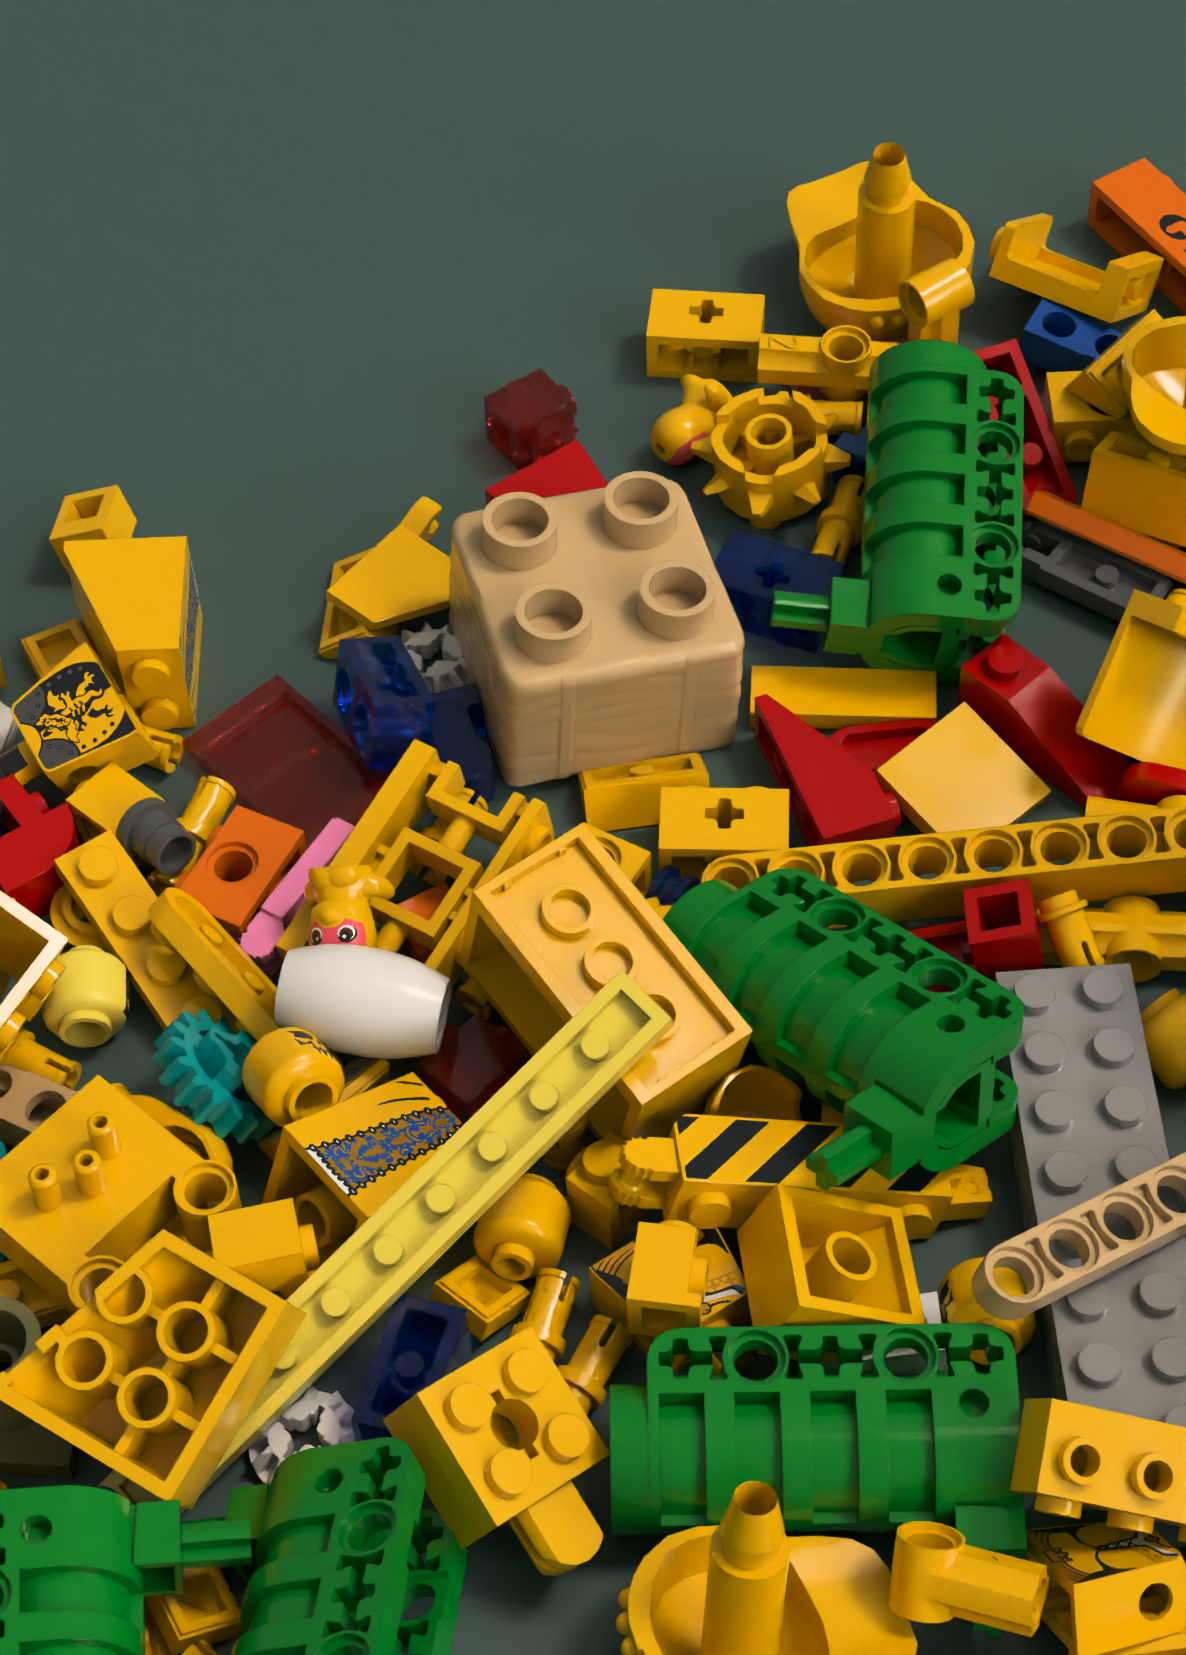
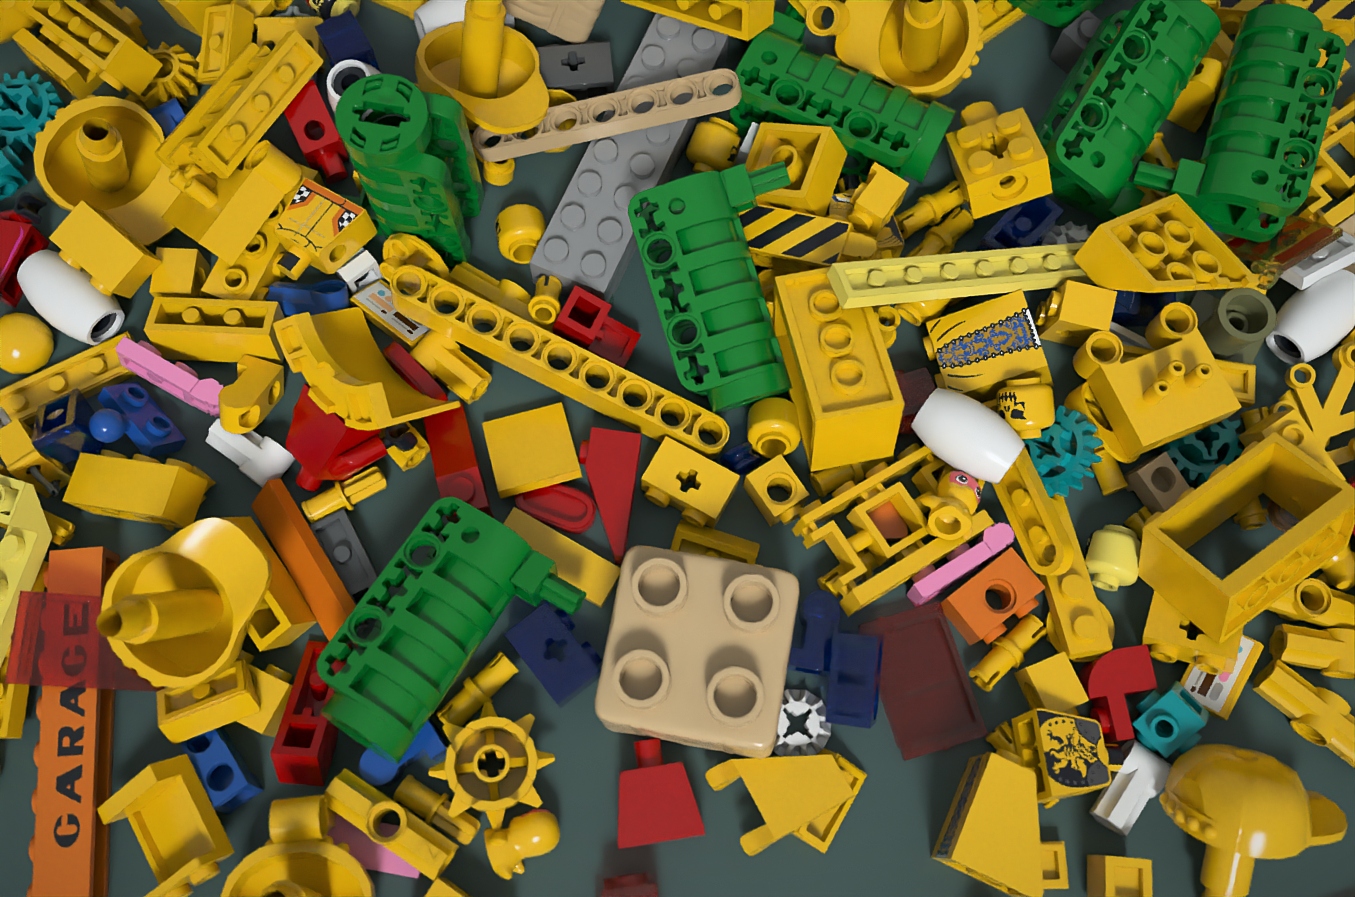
camera: 160 degrees left, 20 degrees up
(154, 835) = (1039, 638): dark grey piece -> none

